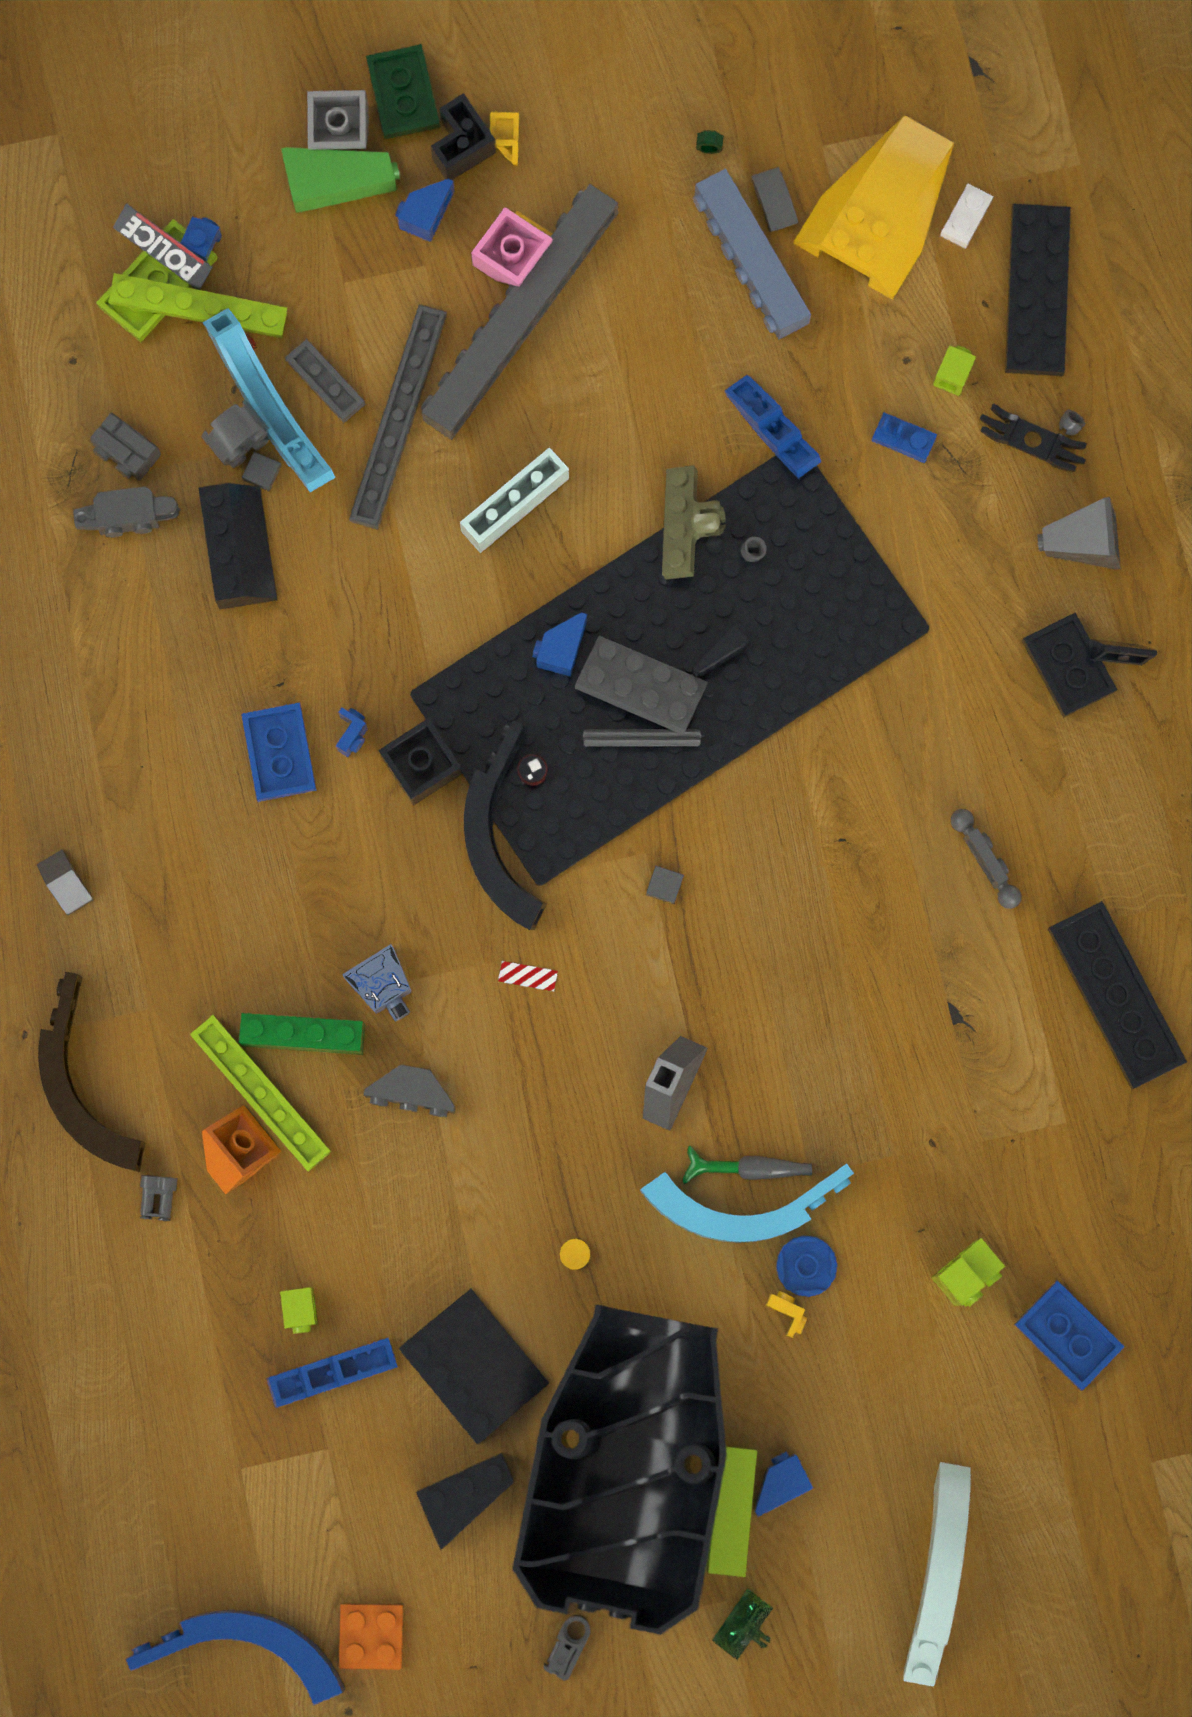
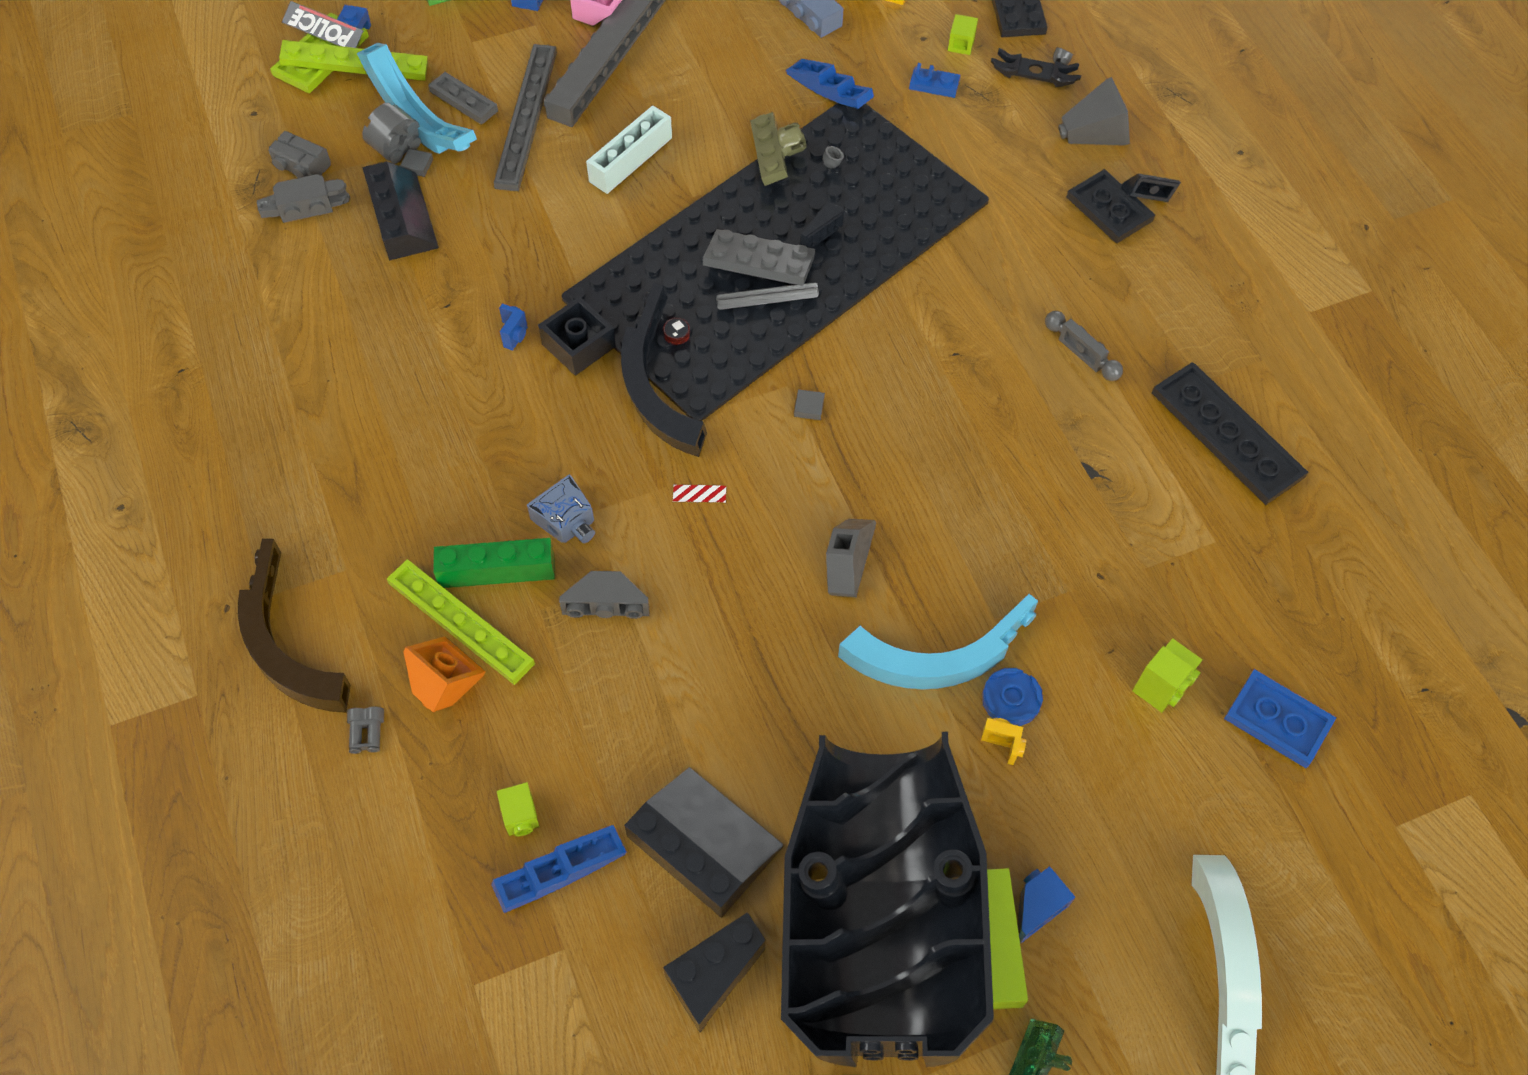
camera: 10 degrees left, 20 degrees down
(64, 882) = (261, 476): slope -> none
(278, 752) = (450, 350): blue plate -> none
(561, 645) = (685, 238): blue slope -> none
(575, 1254) = (786, 719): yellow tile -> none
(747, 1167) = (936, 618): dark grey piece -> none

